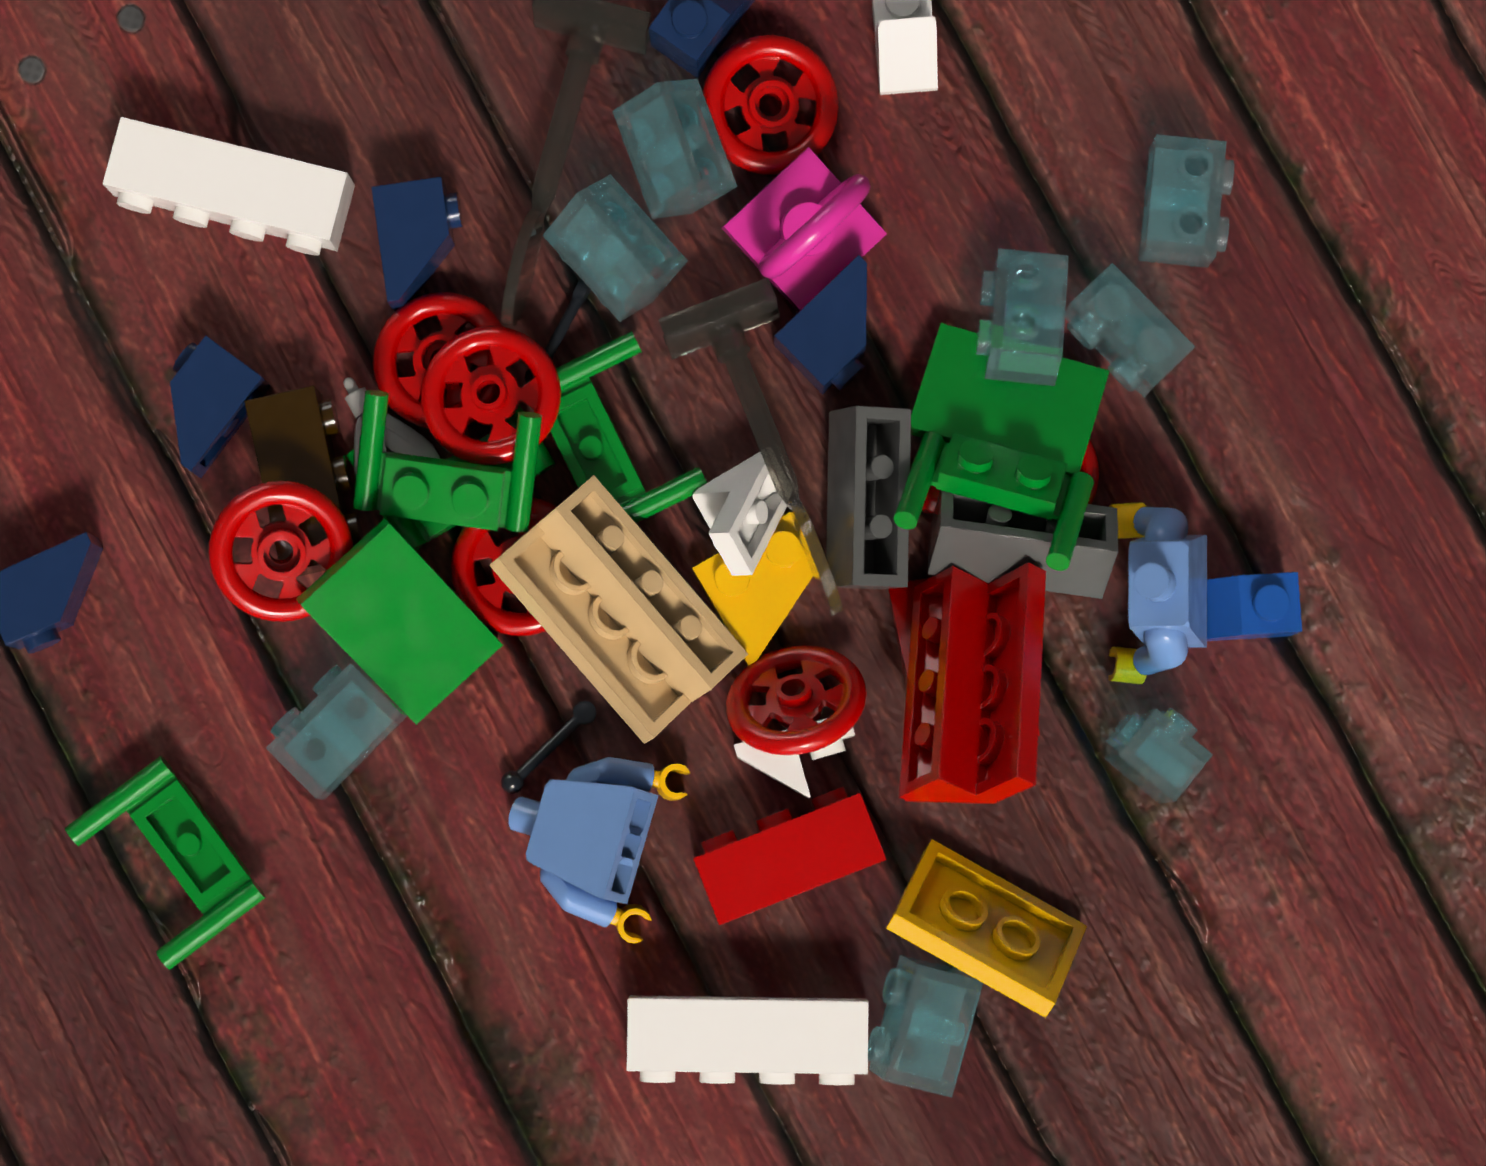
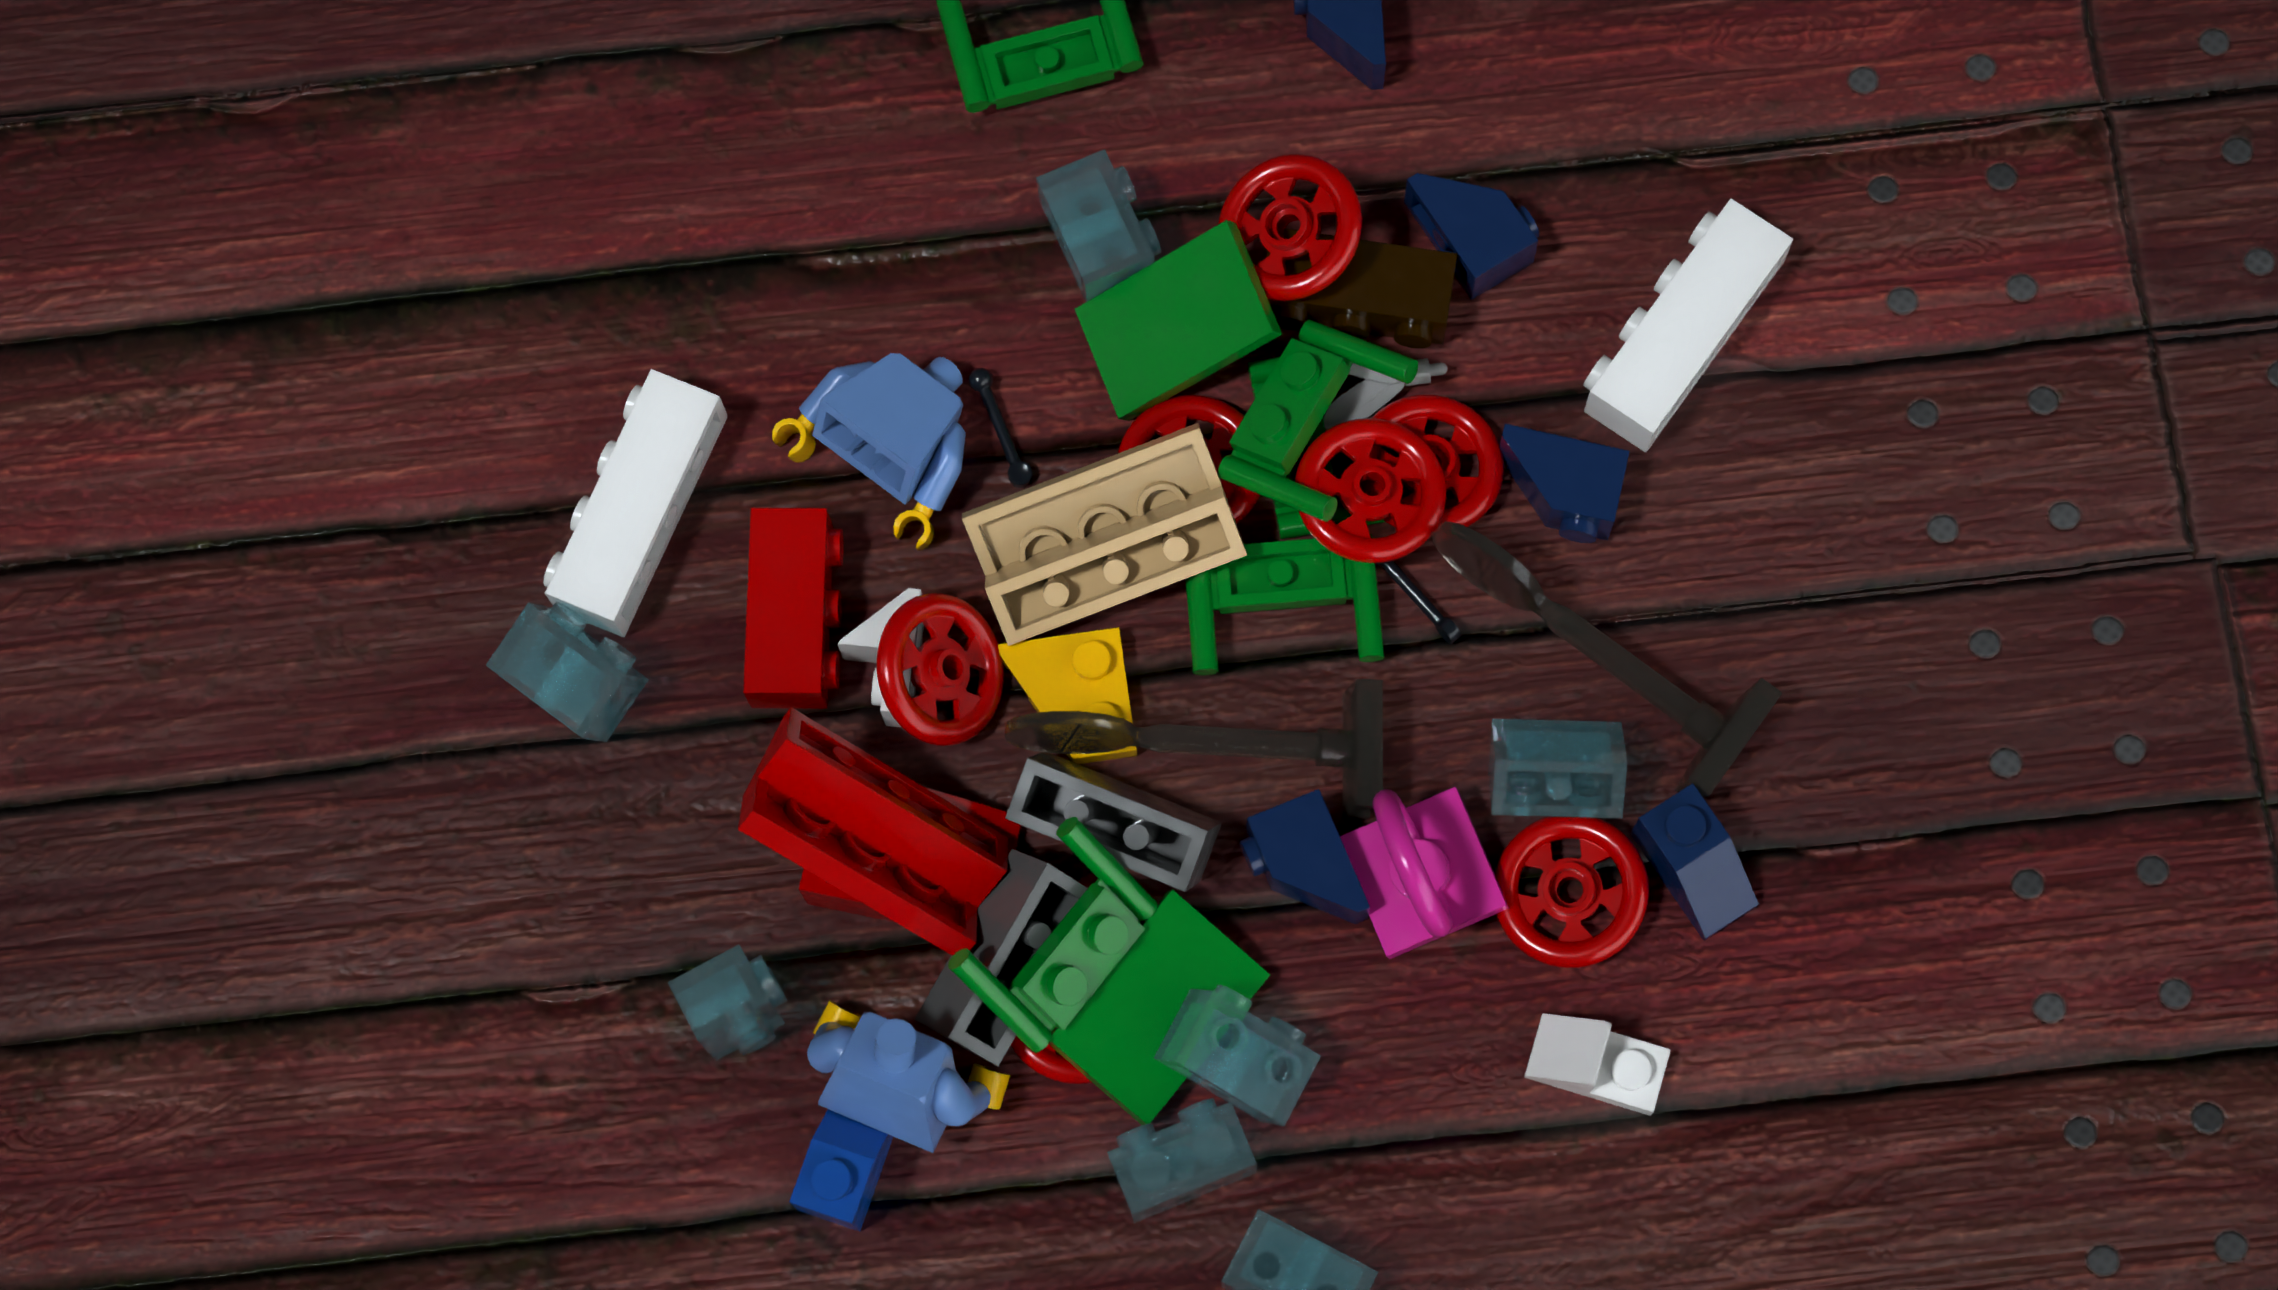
camera: 115 degrees right, 10 degrees down
(614, 247) = (1475, 669): clear light blue brick -> none
(741, 513) = (1145, 688): white slope -> none
(987, 928) = (634, 767): yellow plate -> none

